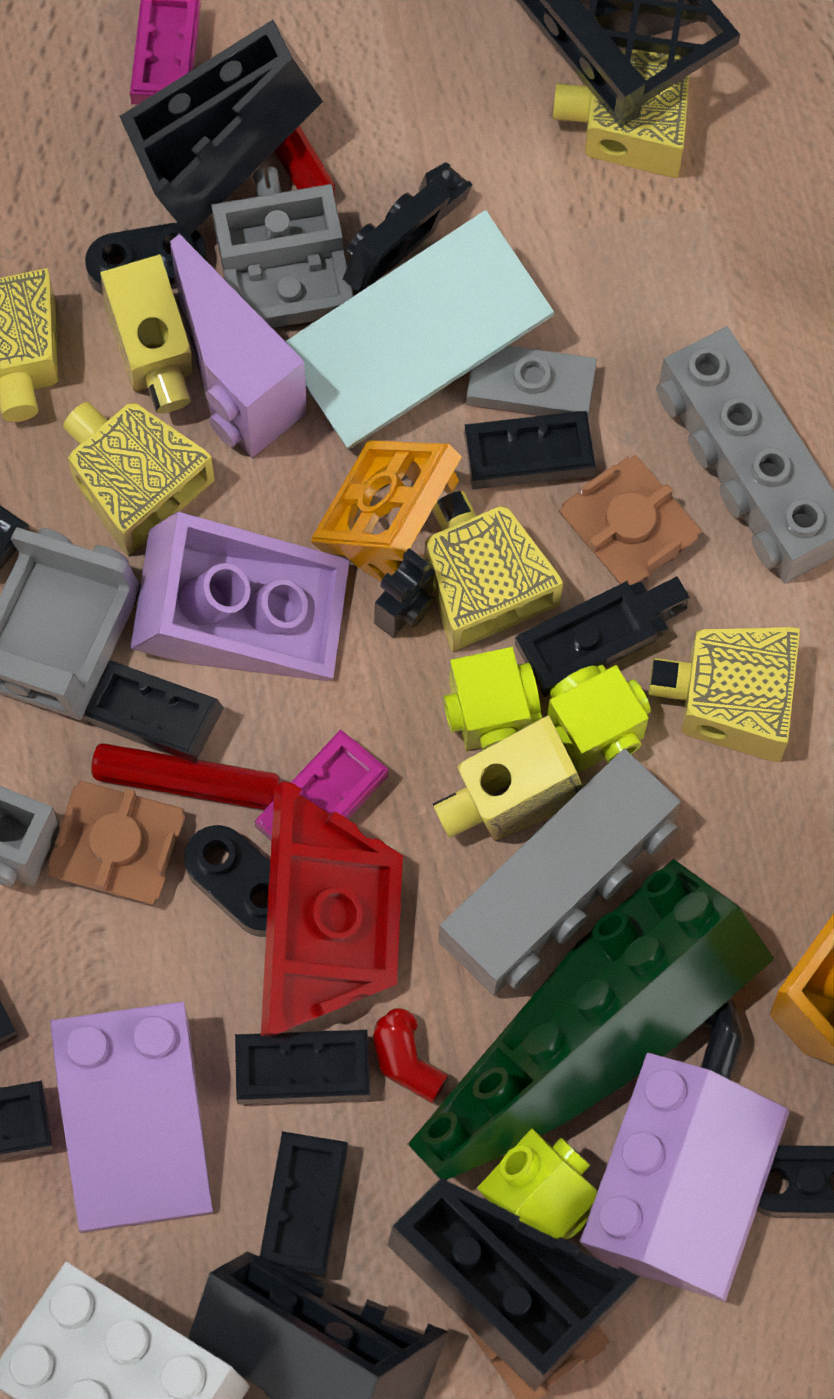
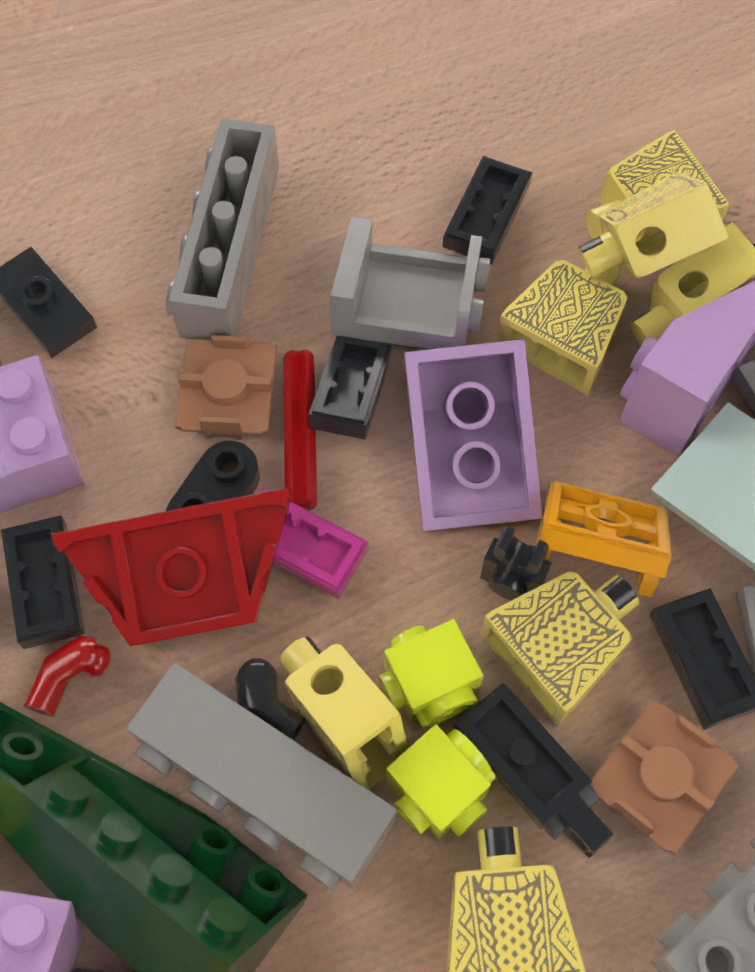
camera: 80 degrees right, 5 degrees down
(78, 347) = (675, 220): none -> light yellow torso
(472, 865) = (259, 695): none -> black arm

